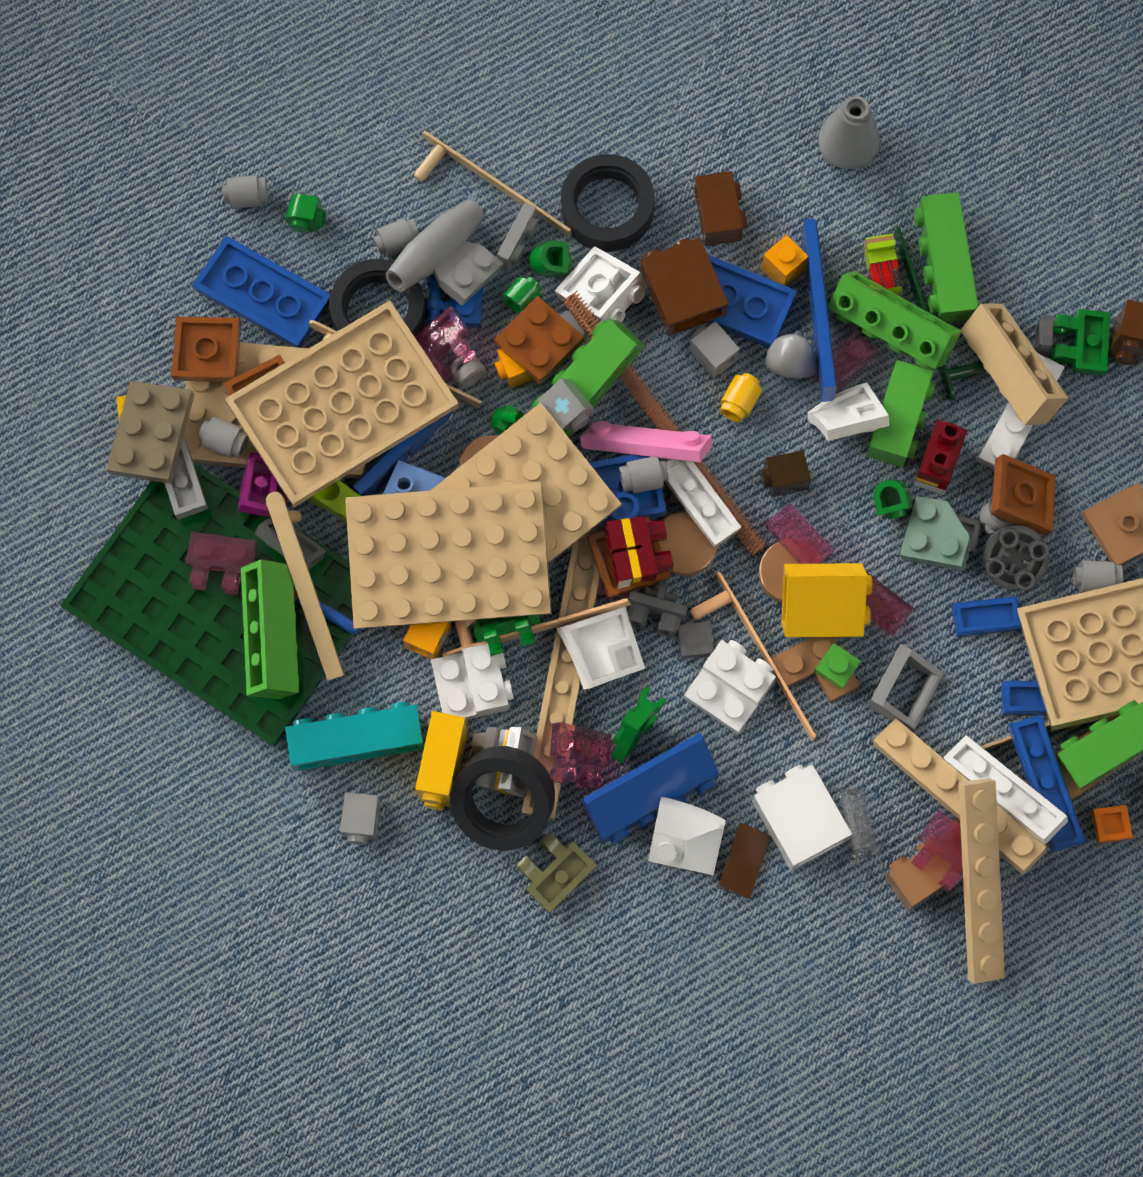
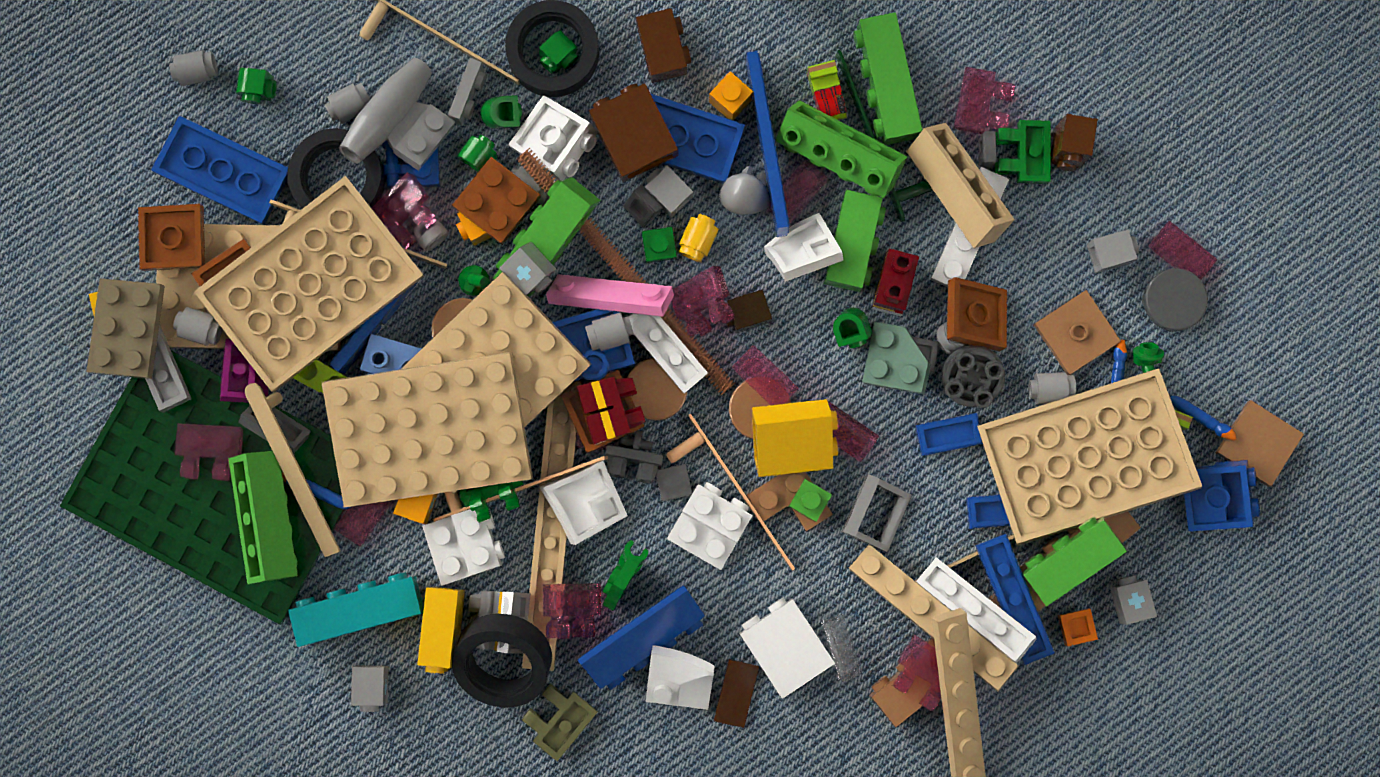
camera: 10 degrees left, 10 degrees up
(370, 646) = (361, 520): none -> clear pink plate
(612, 207) = (557, 52): none -> green plate
(686, 361) = (642, 206): none -> flat silver tile
(699, 402) = (659, 245): none -> green plate
(736, 450) = (699, 293): none -> clear pink plate
(1033, 288) = (975, 99): none -> clear pink plate

